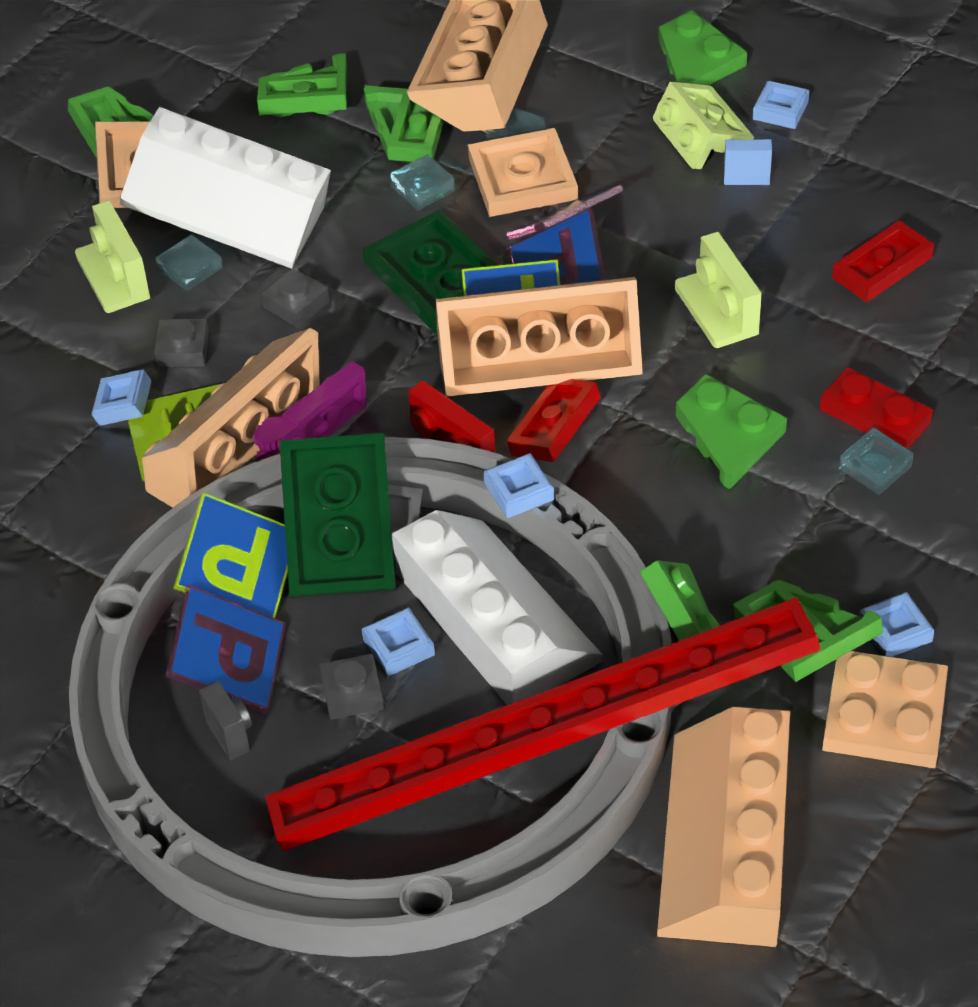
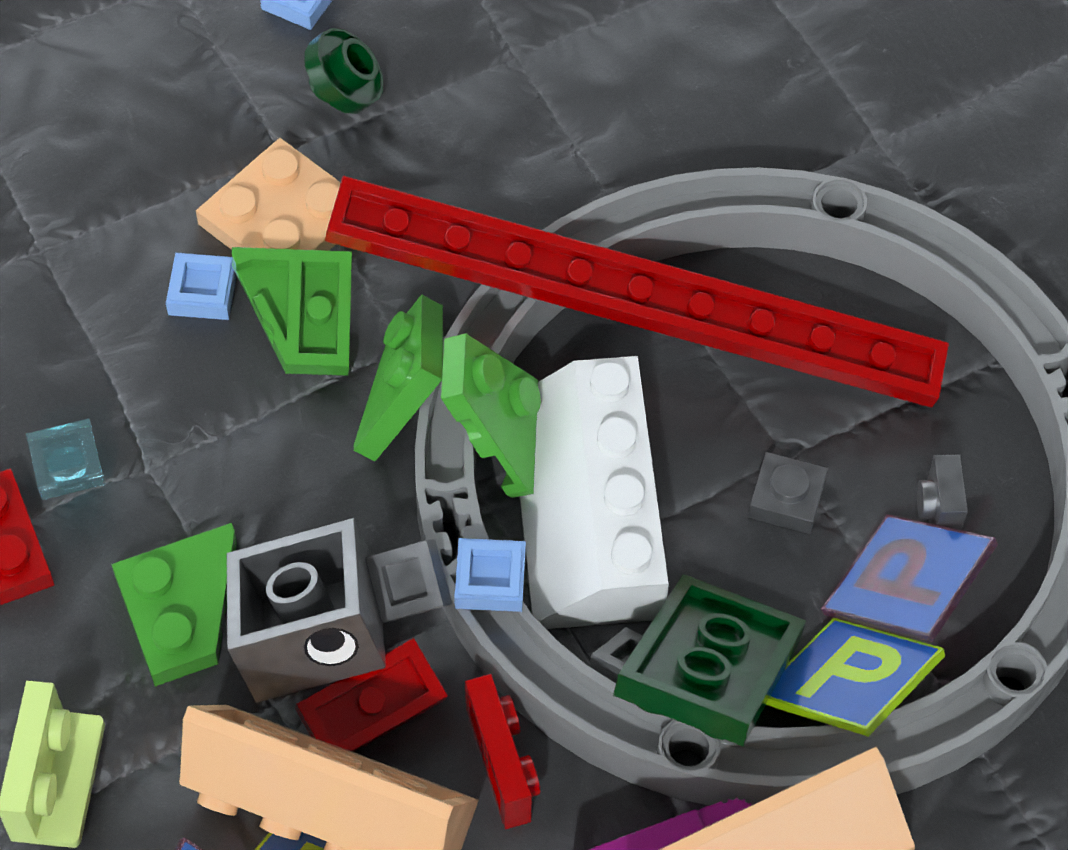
camera: 155 degrees left, 10 degrees up
(398, 642) = (711, 521): light blue tile -> none
(572, 461) = (408, 580): none -> flat silver plate
(594, 589) = (495, 407): none -> bright green wing
(626, 415) = (303, 611): none -> flat silver brick
(726, 829) = (529, 141): light nougat slope -> none
(931, 826) = (343, 71): none -> dark green plate

